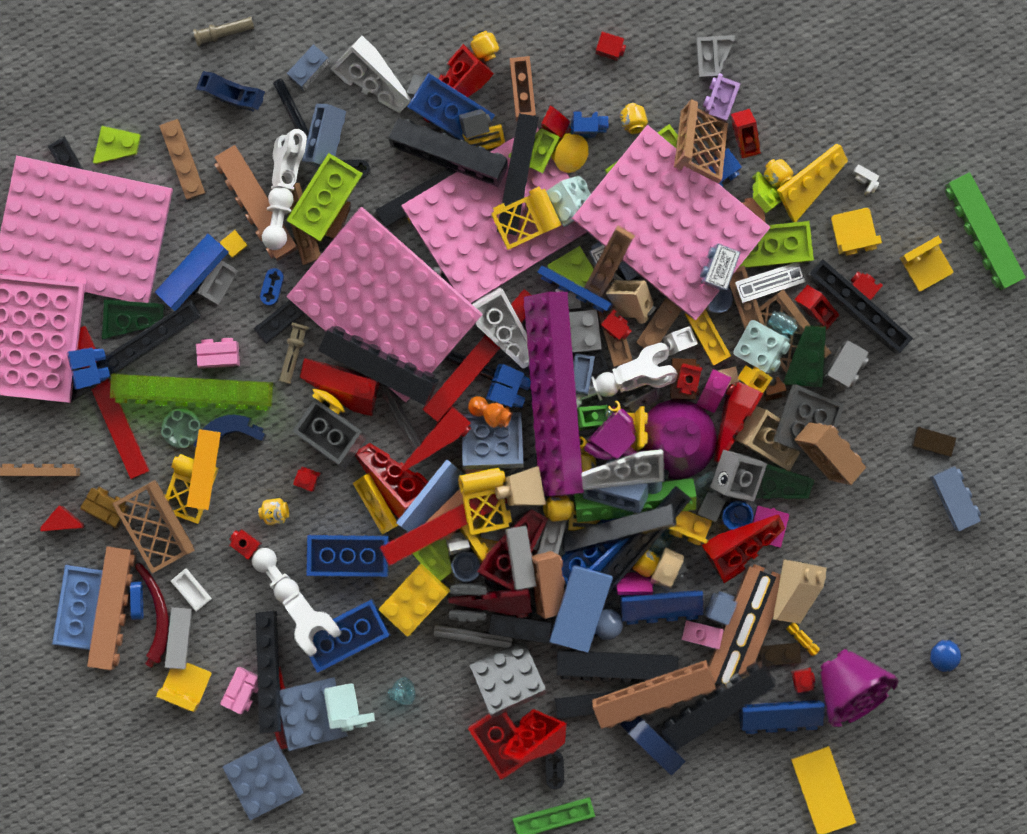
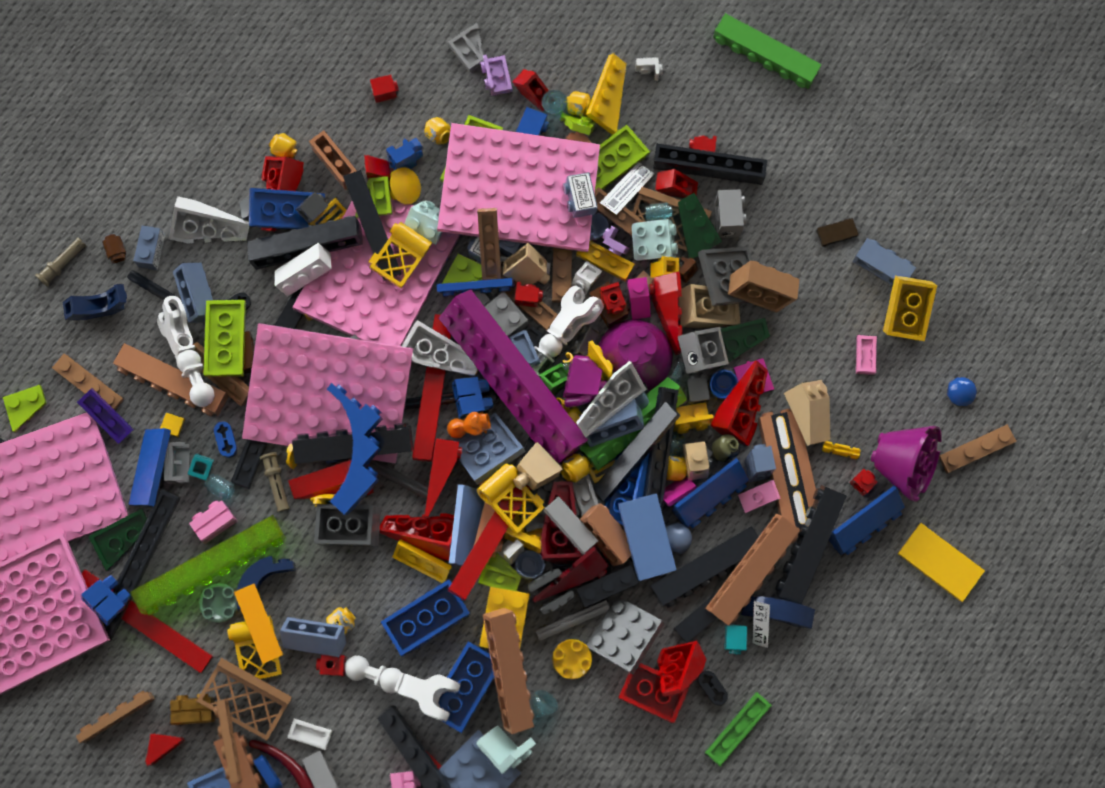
camera: 30 degrees left, 10 degrees down
(115, 563) = (229, 750): none -> medium nougat plate
(180, 200) = (105, 415): none -> dark purple plate
(235, 299) = (200, 466): none -> teal brick
(241, 327) = (219, 487): none -> clear light blue brick
(242, 510) = (313, 637): none -> sand blue brick
(277, 48) = (114, 248): none -> reddish brown brick
(306, 479) = (351, 577): red brick -> none
(317, 341) = (290, 457): none -> yellow tile
(389, 646) = (508, 670): none -> nougat brick
(397, 354) = (359, 478): none -> blue arch
(431, 177) = (303, 269): none -> white brick
(451, 669) = (572, 659): none -> yellow dish
(601, 742) = (735, 639): none -> teal brick
(630, 745) = (761, 624): none -> white sticker
(687, 137) = (490, 116): medium nougat fence -> none
(702, 574) = (726, 448): none -> olive head
(723, 328) = (615, 246): none -> lavender bracket
(756, 159) = (554, 102): none -> clear light blue brick
(780, 654) = (832, 472): dark brown plate -> none
(855, 231) = (668, 112): yellow bracket -> none
(882, 569) = (866, 354): none -> bright pink plate
(924, 714) = (977, 449): none -> medium nougat plate
(926, 264) = (738, 102): yellow bracket -> none
(948, 555) = (909, 308): none -> yellow brick

